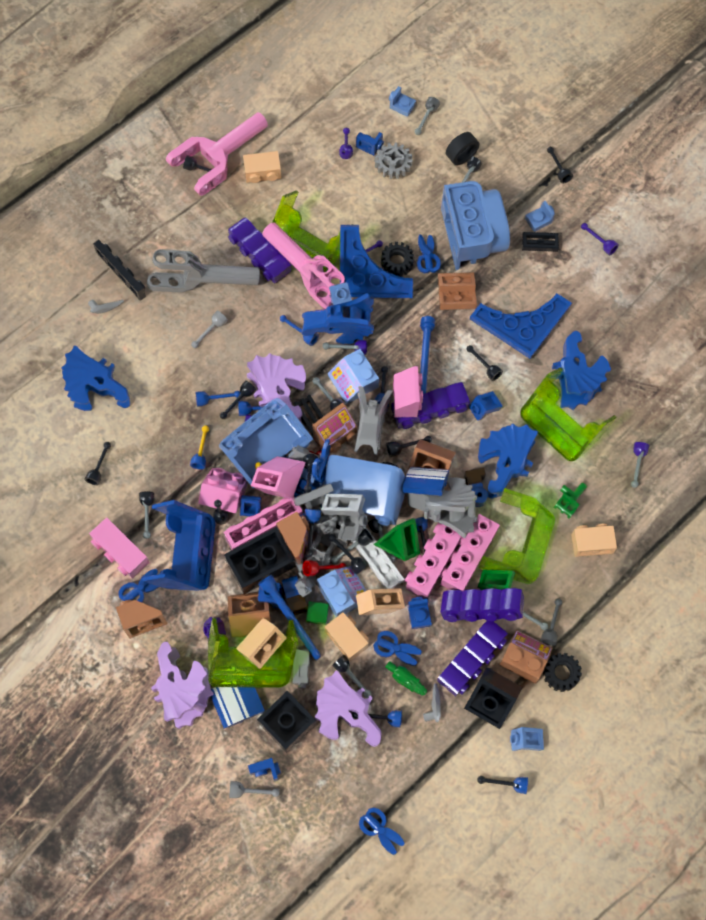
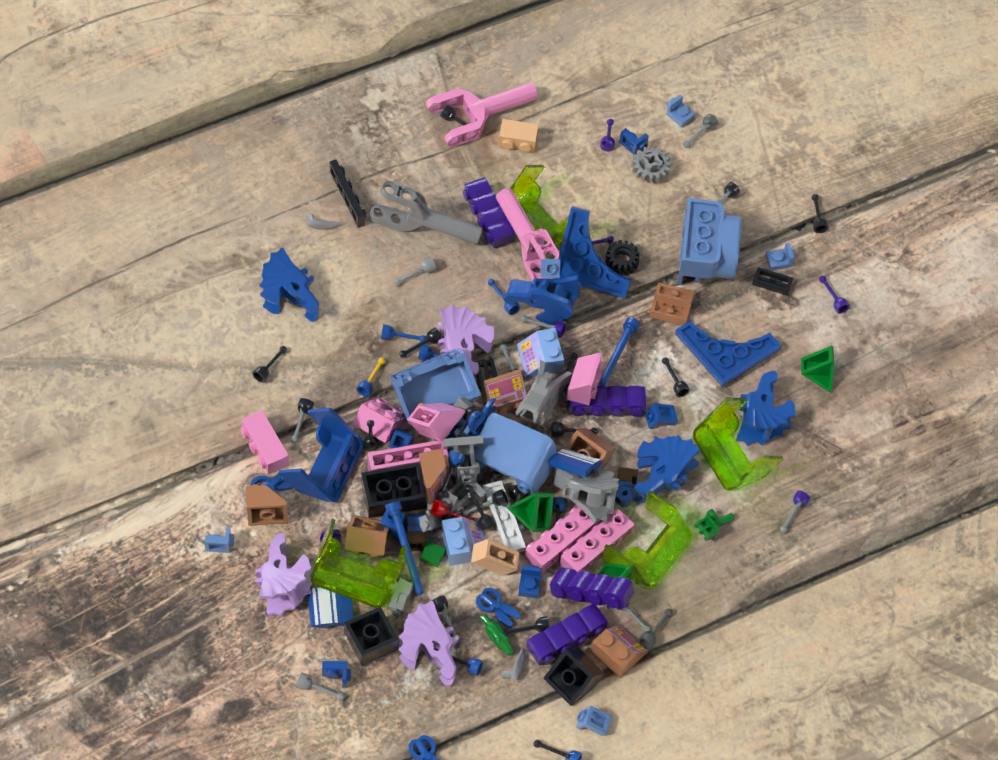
camera: 15 degrees right, 10 degrees down
(106, 669) = (219, 543): none -> medium blue bracket
(261, 643) = (370, 558): light nougat brick -> none
(346, 636) = (452, 581): light nougat brick -> none
(350, 519) = (493, 472): light grey tile -> none
(427, 251) = (655, 261): blue piece -> none
(444, 654) = (540, 625): none -> black hinge
(462, 148) = (715, 171): black tyre -> none
(570, 663) = (648, 684): black tyre -> none
(594, 540) = (722, 567): light nougat brick -> none
(613, 313) = (819, 367): none -> green slope

